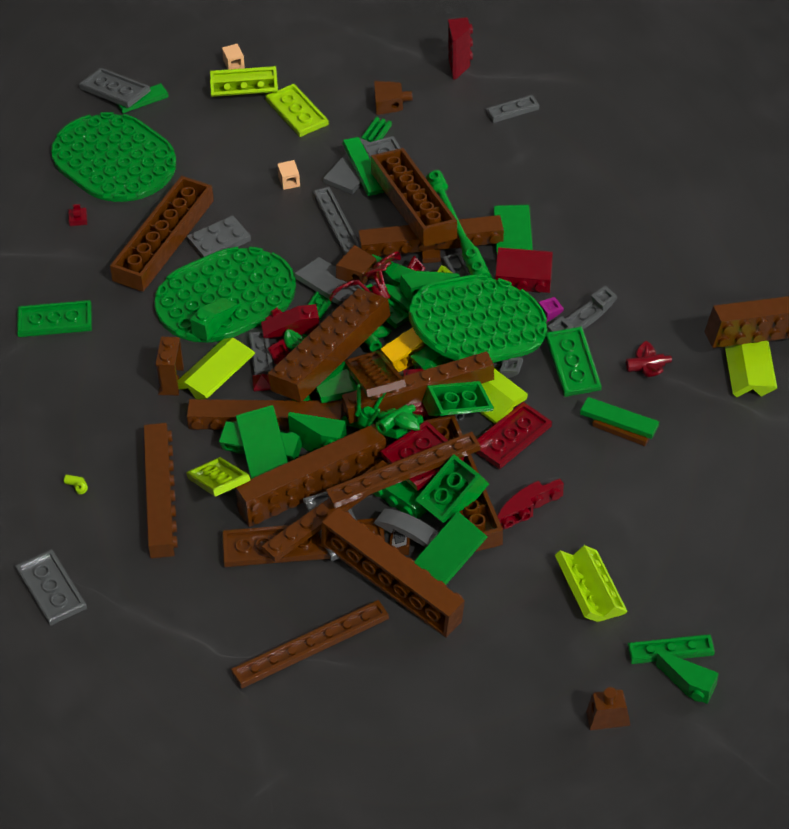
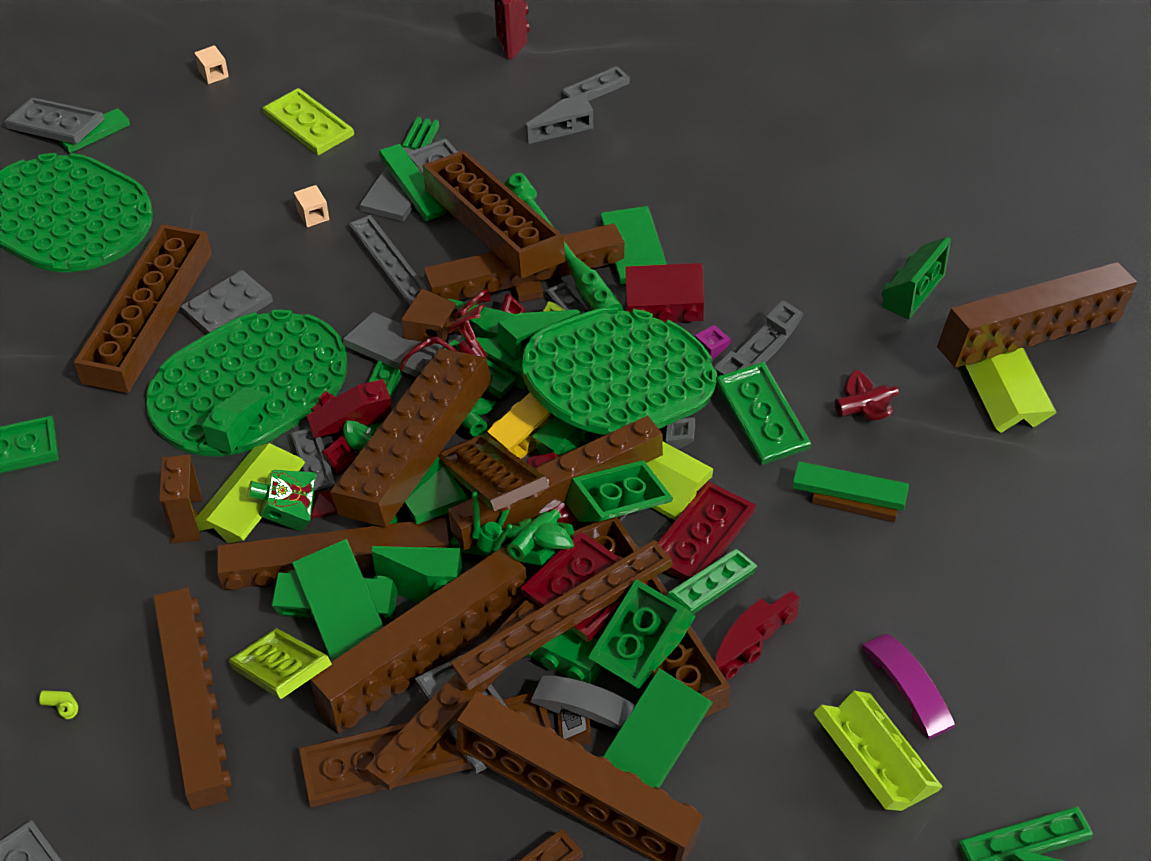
camera: 10 degrees left, 0 degrees up
(77, 215) = (20, 298): dark red tile -> none
(238, 374) = (285, 497): none -> green torso
(243, 81) = (230, 92): lime slope -> none
(390, 97) = (430, 89): reddish brown torso -> none
(482, 131) = (561, 119): none -> dark grey slope
(509, 465) = (713, 581): none -> tile
(625, 547) = (912, 682): none -> magenta slope
(708, 282) = (917, 278): none -> green slope

